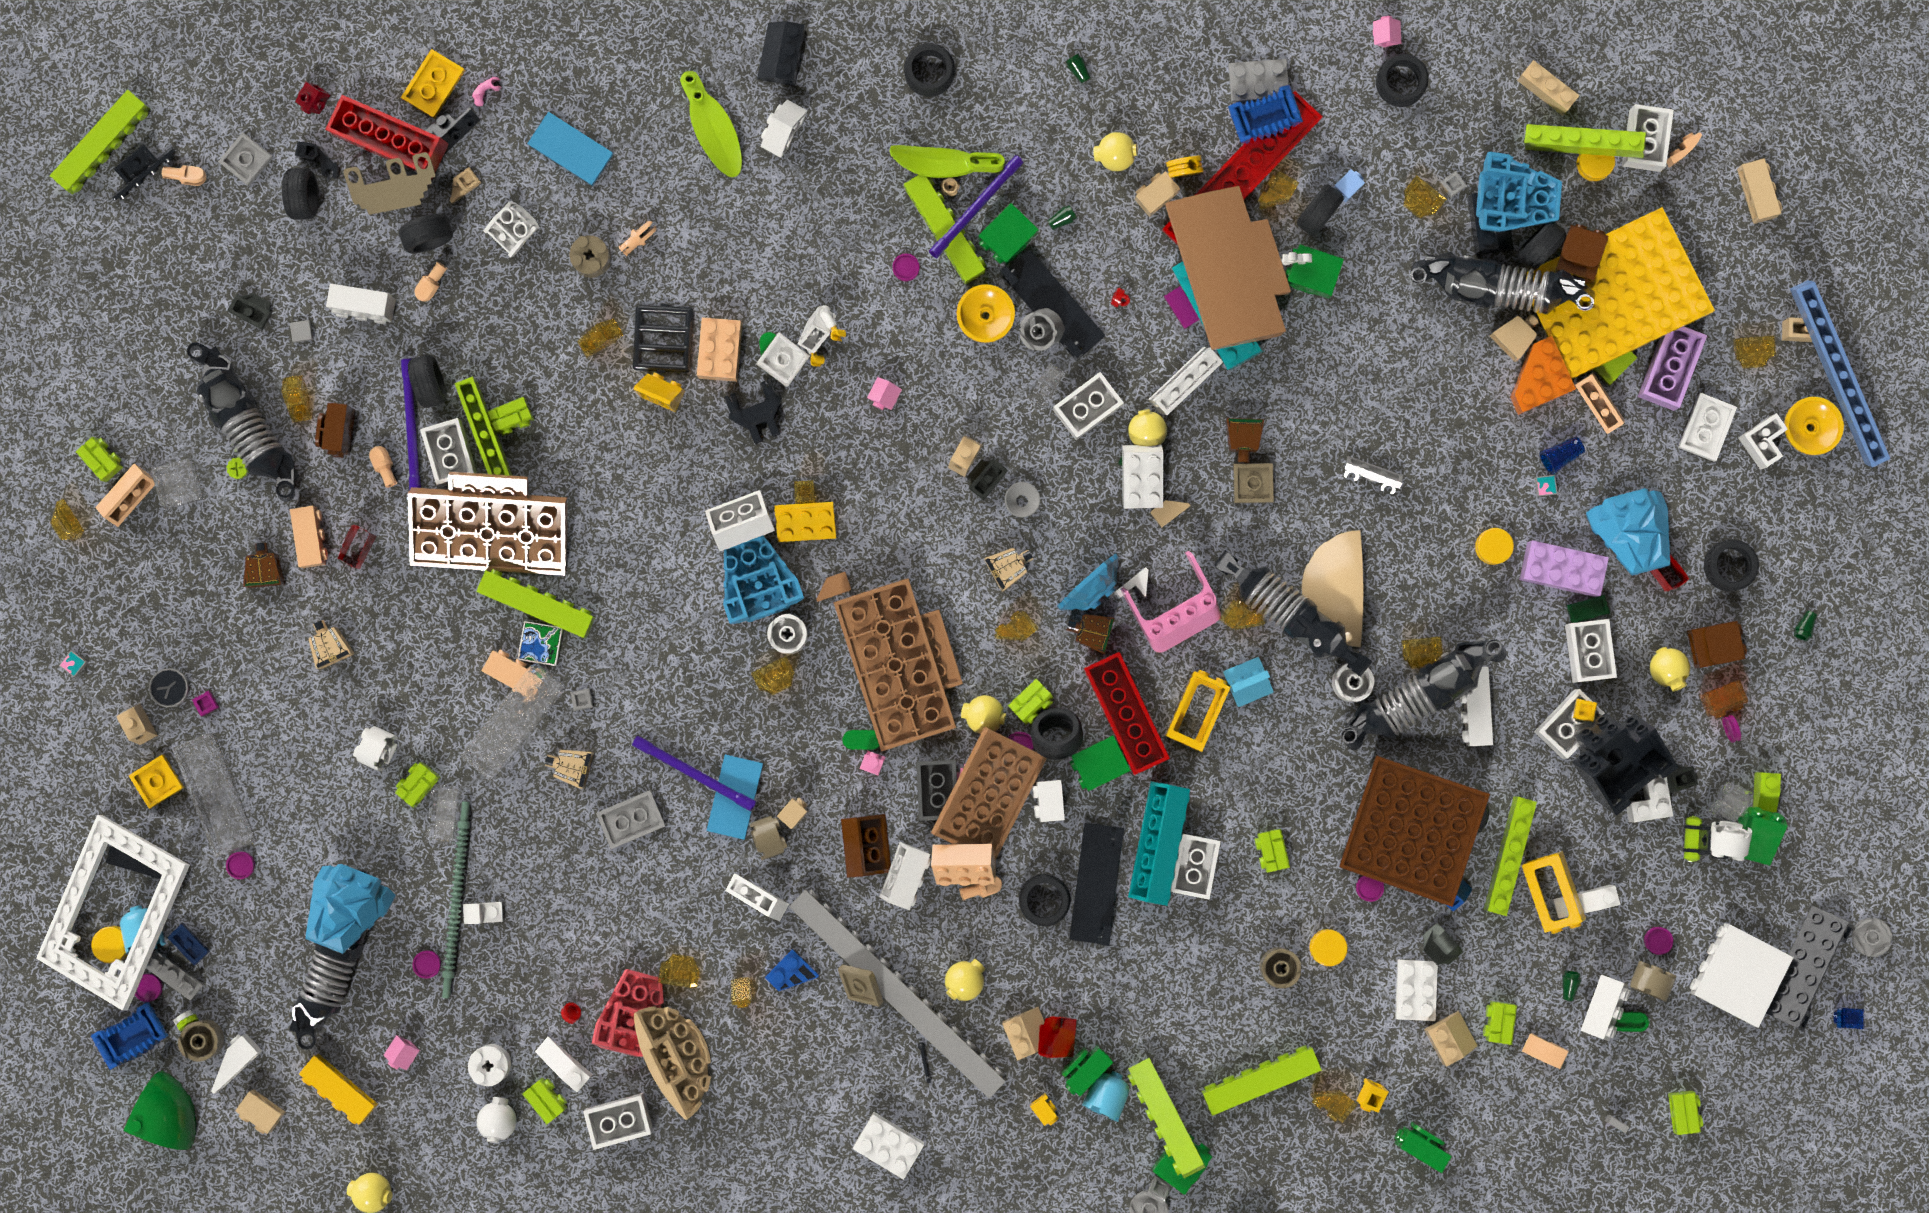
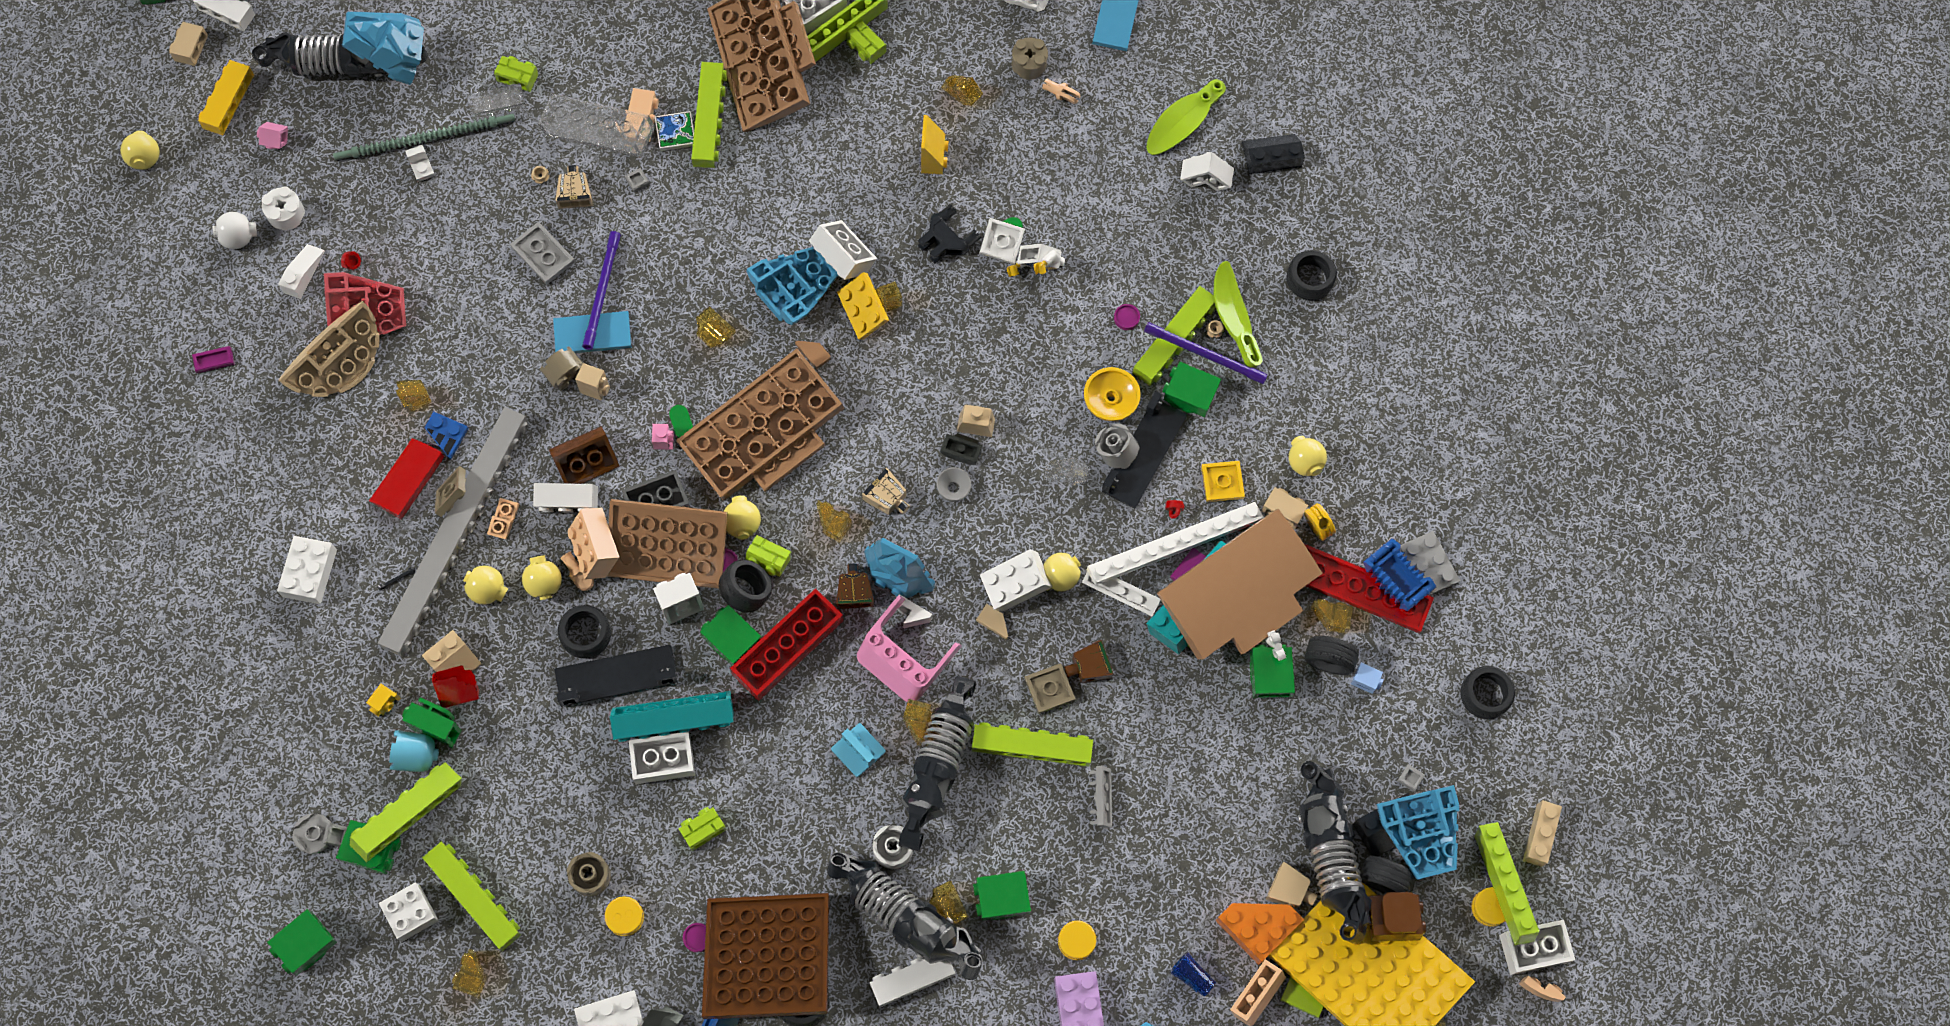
camera: 65 degrees right, 15 degrees down
(375, 748) = (536, 29): white brick -> none
(426, 964) = (359, 132): magenta piece -> none
(541, 790) = (537, 171): none -> tan plate
(545, 1100) = (264, 265): lime brick -> none
(618, 1121) = (262, 329): white brick -> none
(629, 1178) = (213, 359): none -> magenta tile
(640, 327) = (979, 162): black bar -> none
(679, 971) = (416, 337): clear yellow slope -> none
(719, 349) = (990, 186): light nougat brick -> none
(757, 897) = (504, 381): white slope -> none
(778, 640) = (759, 334): white brick -> none
(824, 1024) = (407, 478): none -> red slope
(884, 394) = (1004, 334): bright pink brick -> none
(900, 942) = (503, 519): none -> light nougat slope
(978, 924) = (541, 578): none -> light yellow brick
(1062, 217) = (1227, 433): dark green cone -> none
(1078, 67) = (1370, 399): dark green cone -> none
(1088, 406) = (1062, 512): white brick -> none
(1109, 241) = (1222, 481): none -> yellow plate
(1158, 312) = (1174, 543): none -> white plate
(1221, 691) = (809, 696): yellow piece -> none
(1256, 1142) = (408, 912): none -> white brick
(1302, 519) = (1032, 745): none -> lime brick
(1336, 583) = (979, 799): tan brick -> none
(1372, 1096) = (496, 1013): yellow brick -> none
(1387, 32) = (1526, 662): bright pink brick -> none
(1422, 198) = (1384, 751): clear yellow slope -> none
(1433, 599) = (1002, 896): none -> green brick
(1546, 485) = (1156, 971): tile -> none

